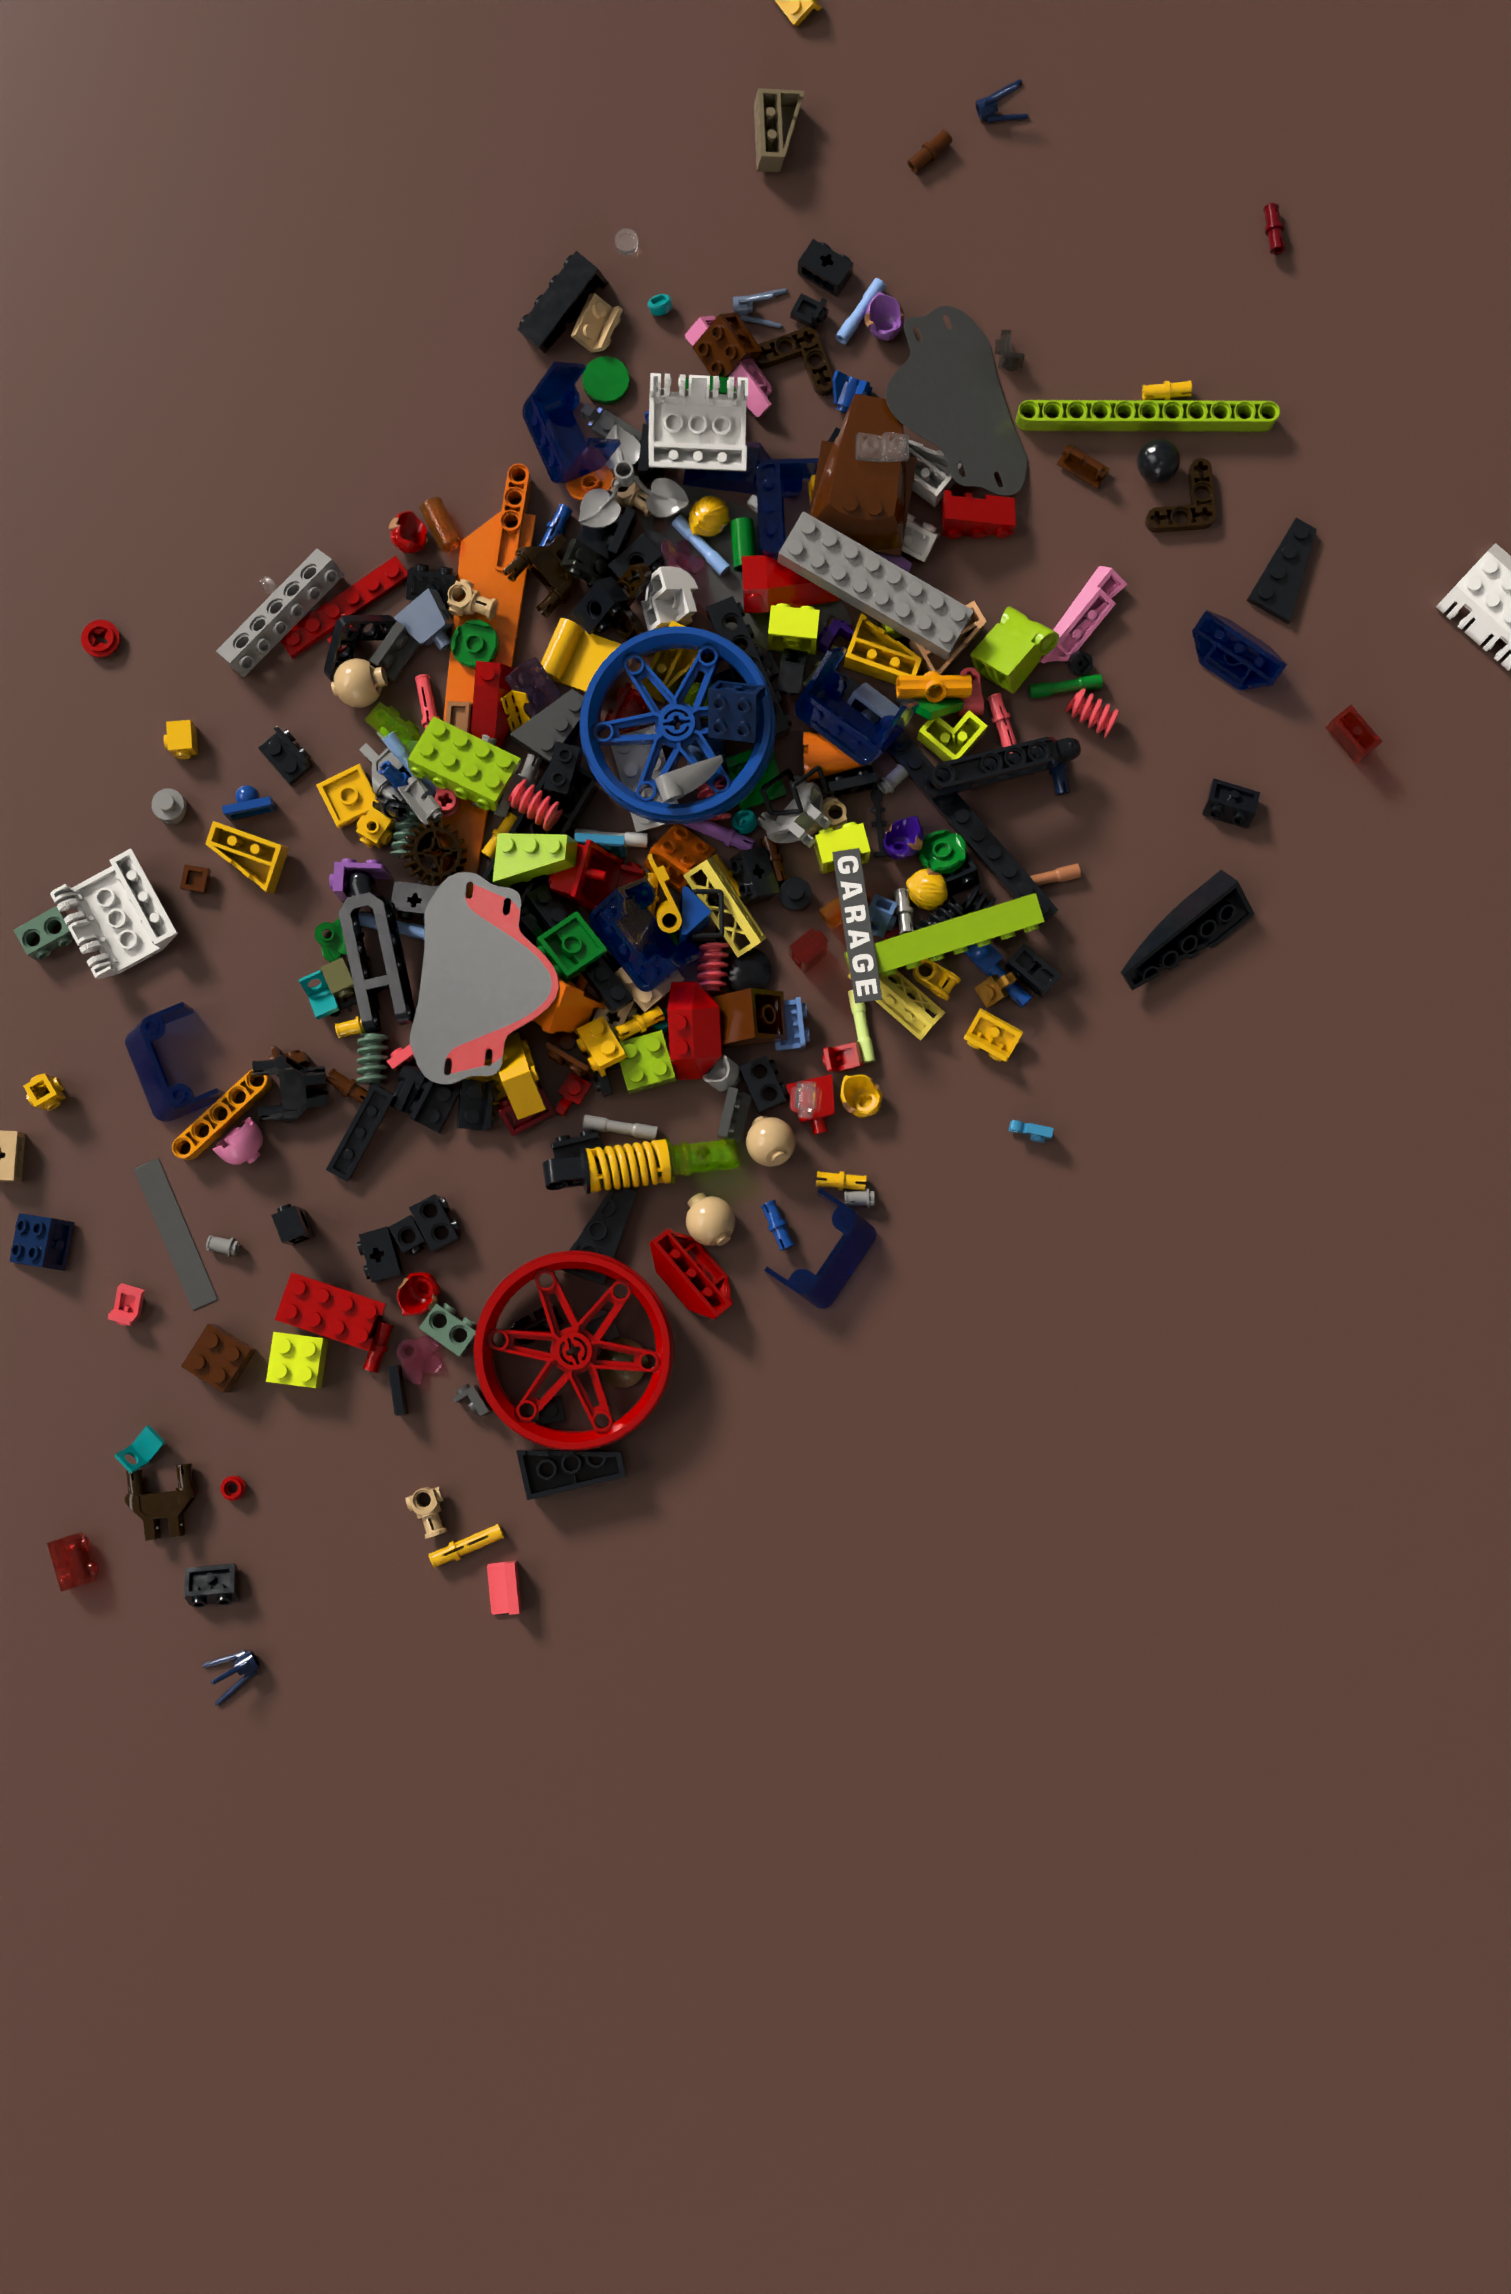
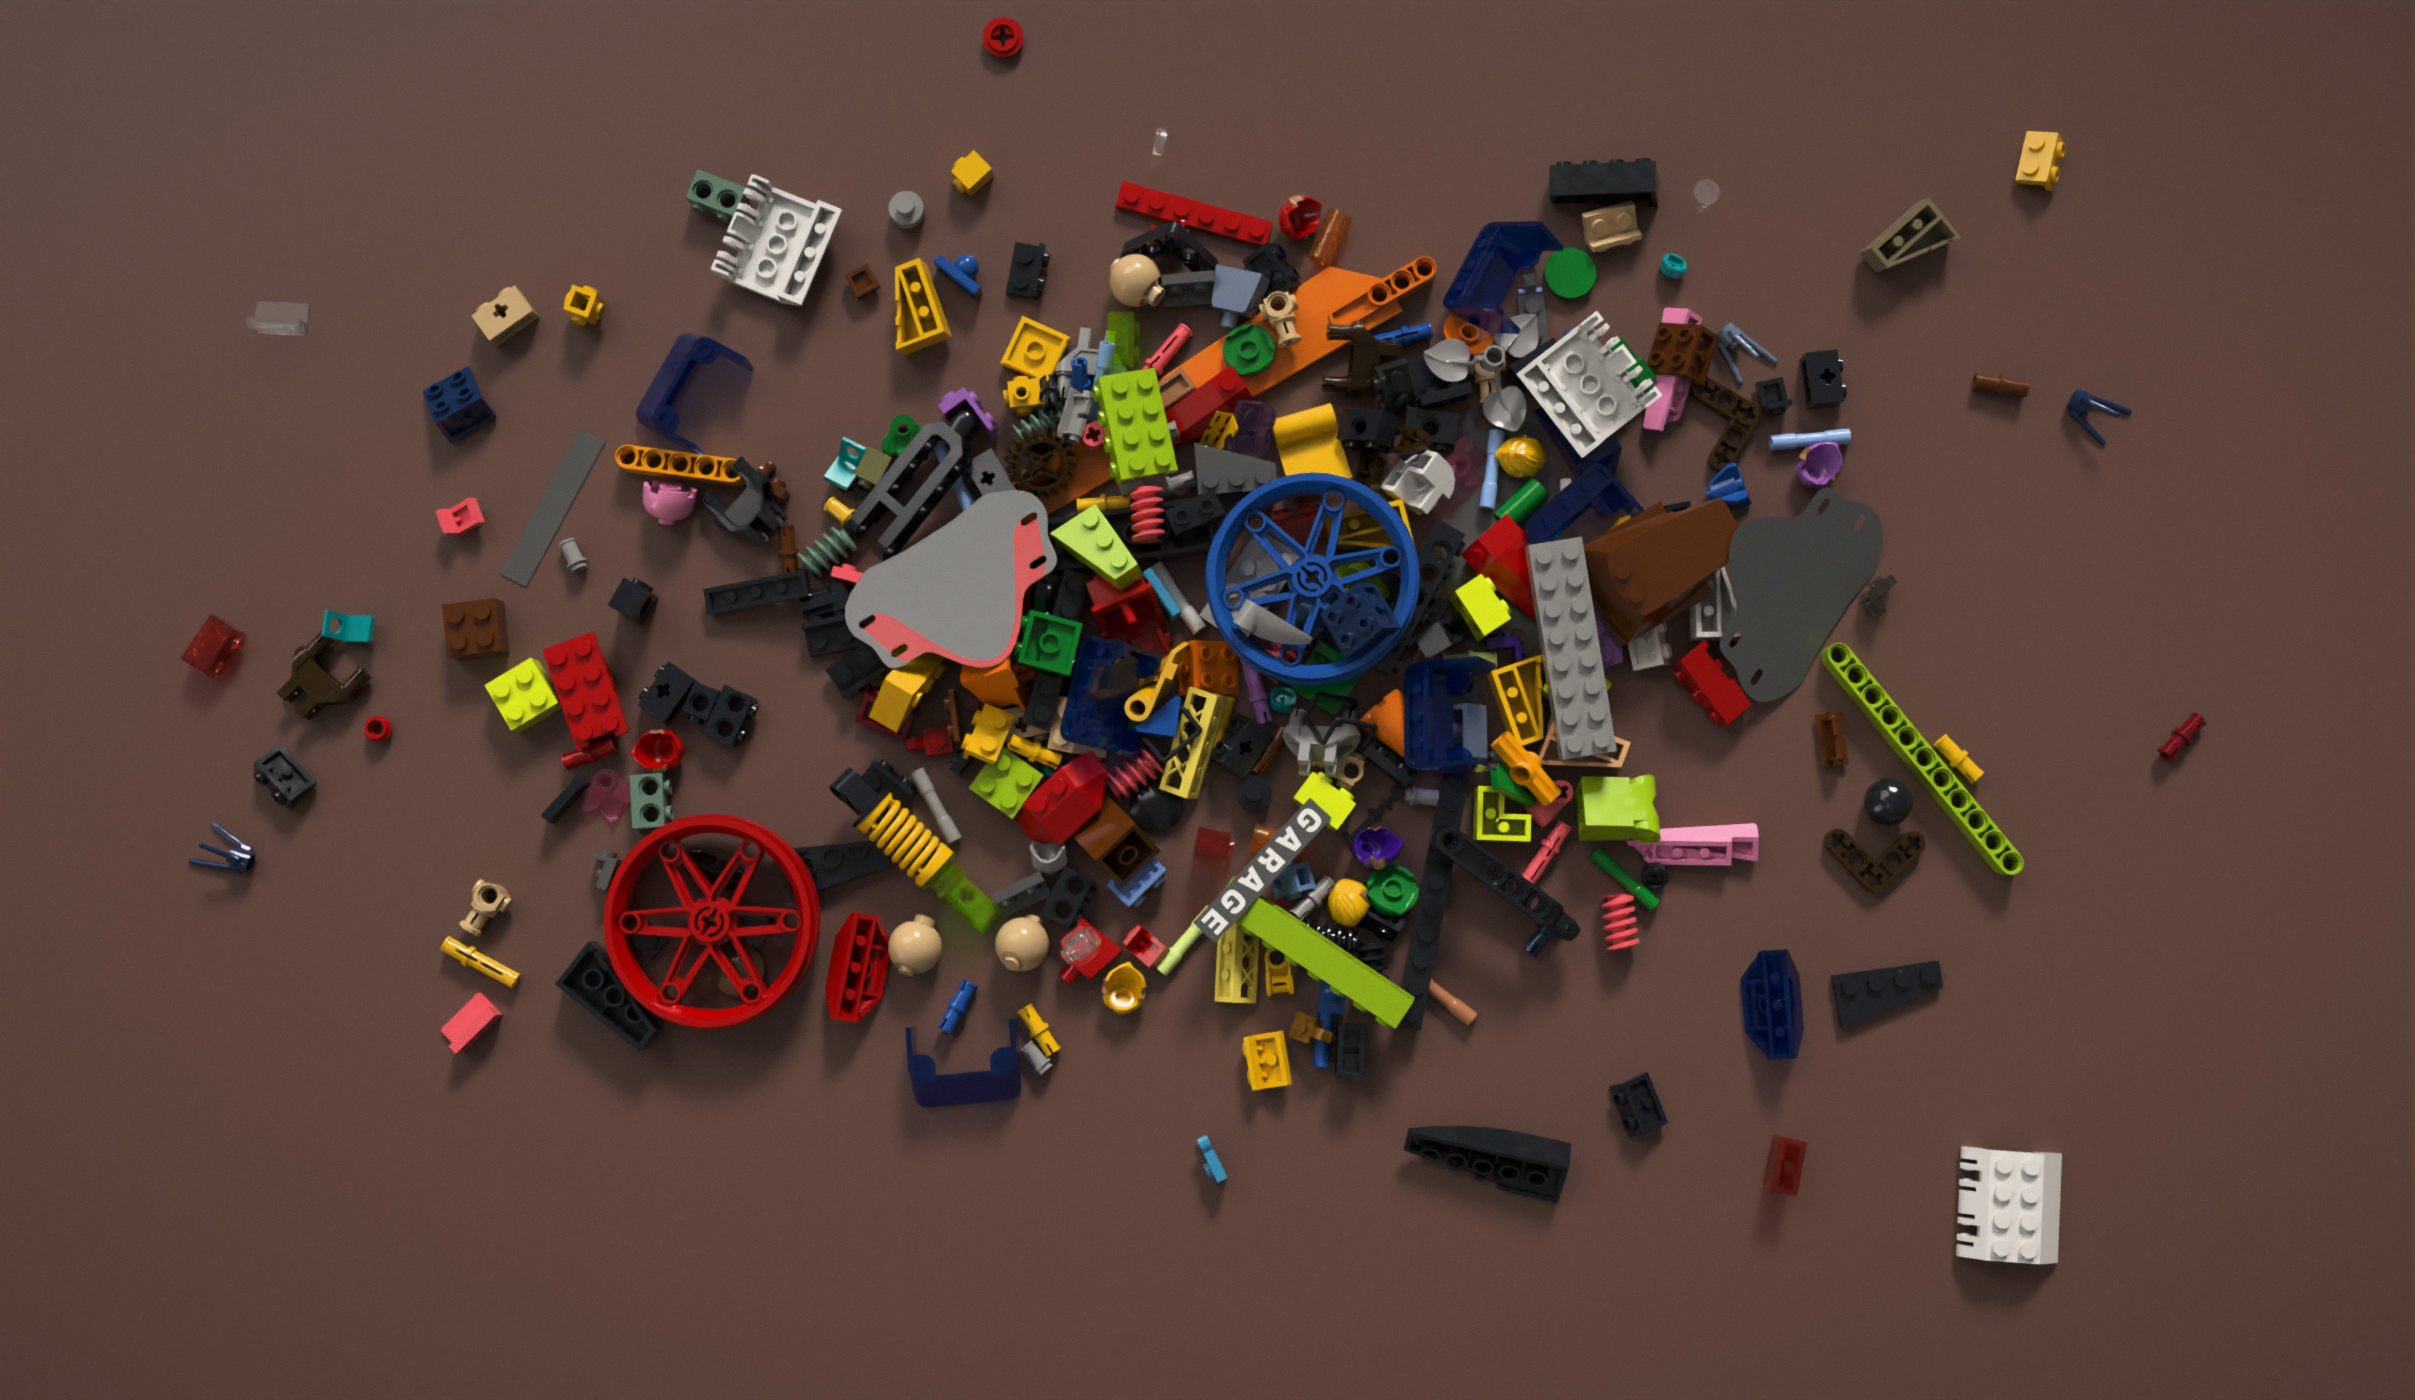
camera: 45 degrees right, 0 degrees up
(280, 612) = (1143, 167): light grey brick -> none
(884, 448) = (1692, 559): clear slope -> none

